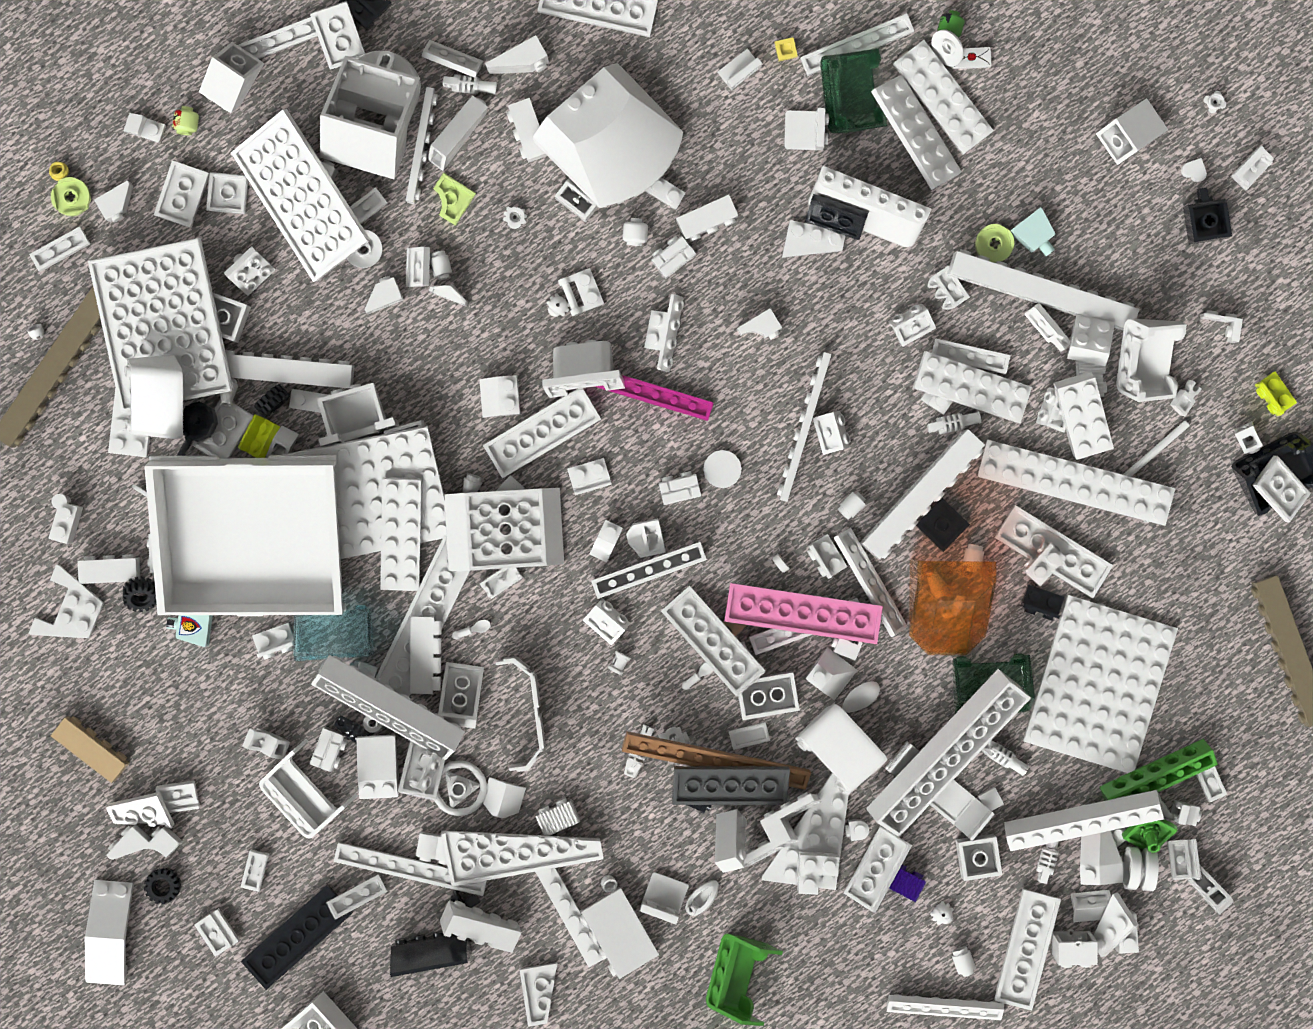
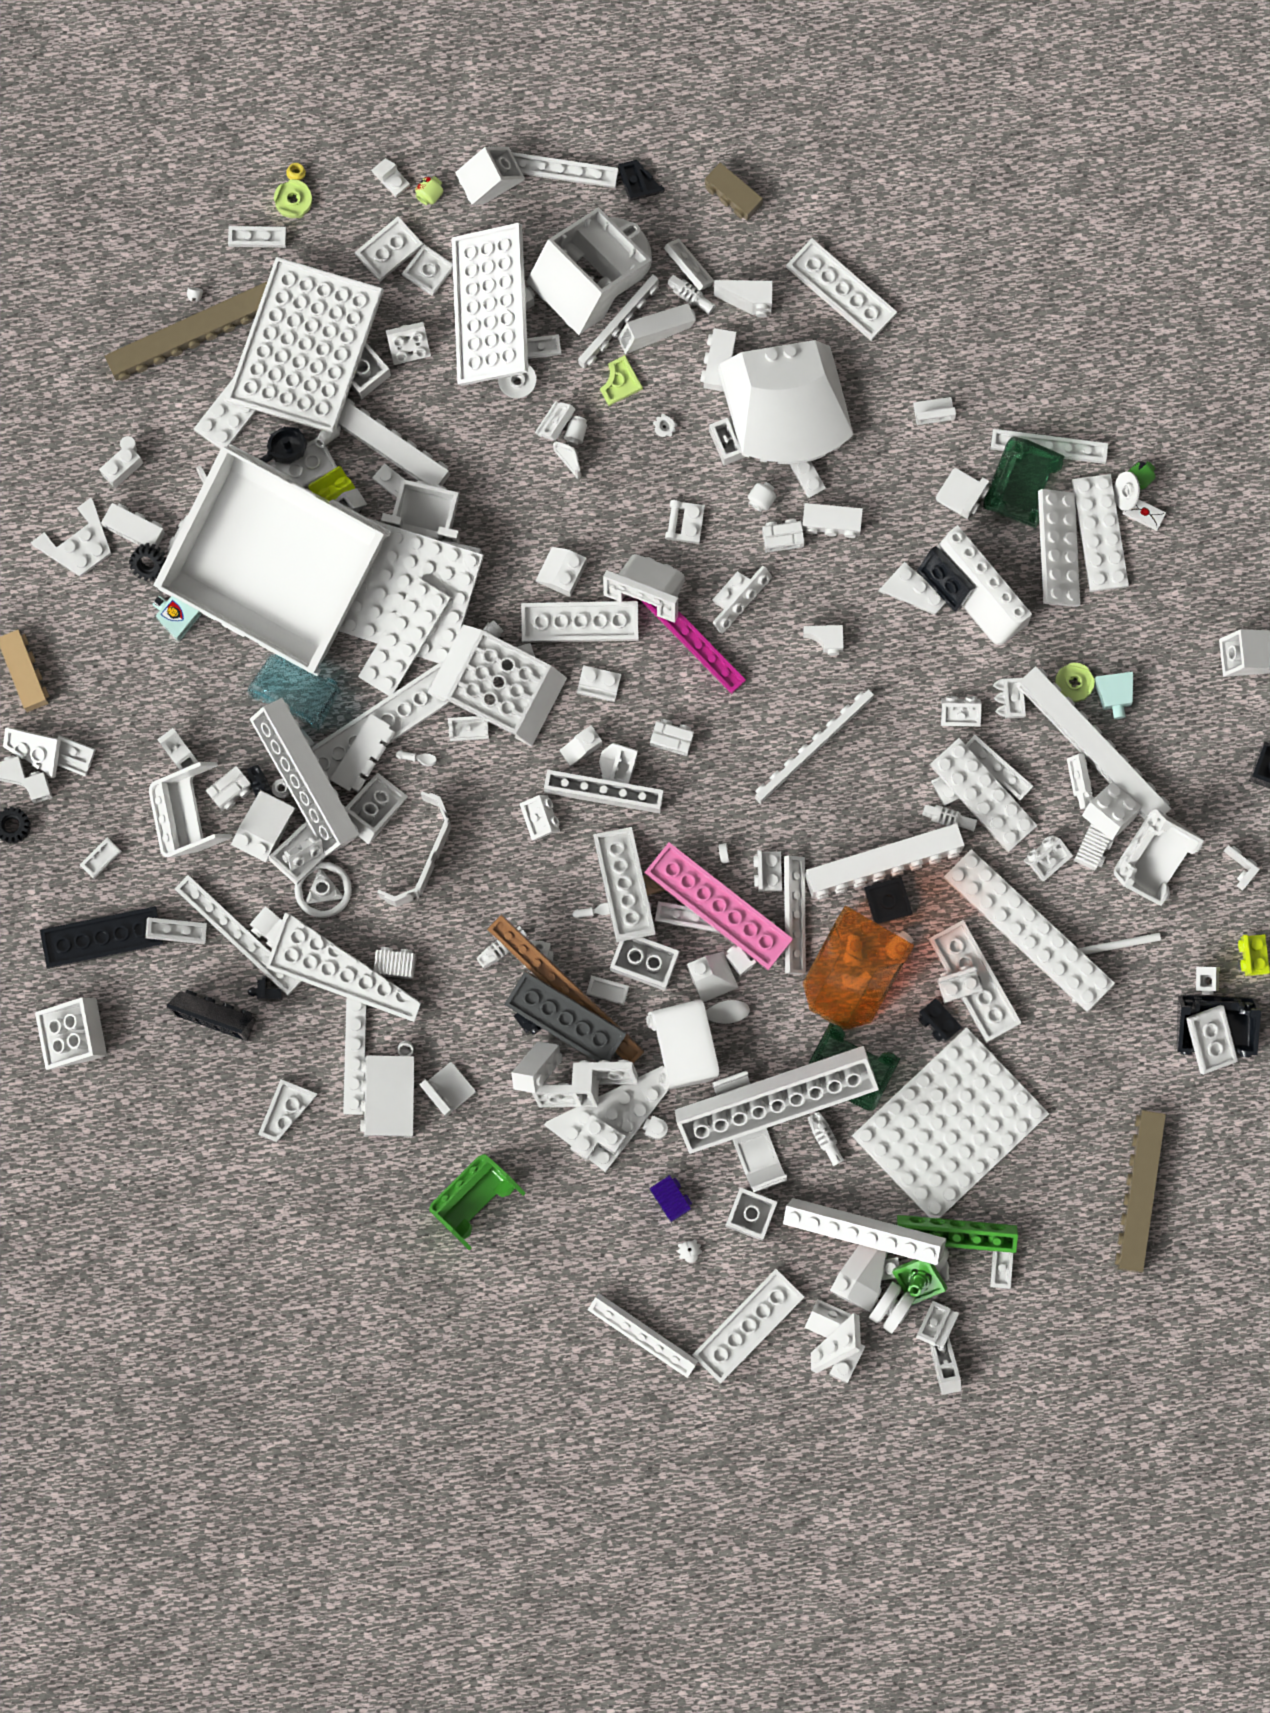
camera: 30 degrees right, 10 degrees down
(115, 202) = (328, 223): white slope -> none
(155, 397) = (264, 400): white windscreen -> none
(217, 932) = (34, 893): white plate -> none
(272, 400) = (361, 462): black tyre -> none
(274, 640) = (238, 669): white bracket -> none
(337, 34) = (602, 188): white plate -> none
(384, 295) = (511, 428): white slope -> none
(479, 926) = (269, 1017): white wedge -> none
(503, 798) = (357, 920): white slope -> none
(554, 310) = (655, 526): white animal -> none
(619, 662) = (529, 859): white bush -> none
(702, 898) = (481, 1110): white arm -> none
(722, 469) = (720, 743): white tile -> none
(785, 49) = (984, 415): light yellow plate -> none
(832, 432) = (836, 764): white bracket -> none
(852, 505) = (817, 838): white brick -> none
(877, 869) = (653, 1173): white tile -> none
(963, 961) = (683, 1303): white brick -> none
(991, 799) = (793, 1171): white tile -> none
(1047, 861) = (814, 1254): white hinge -> none
(1074, 949) = (795, 1349): white brick -> none
(1083, 415) = (1068, 872): white brick -> none
(1184, 398) = (1168, 912): white plate -> none
(1185, 813) = (963, 1283): white arch -> none

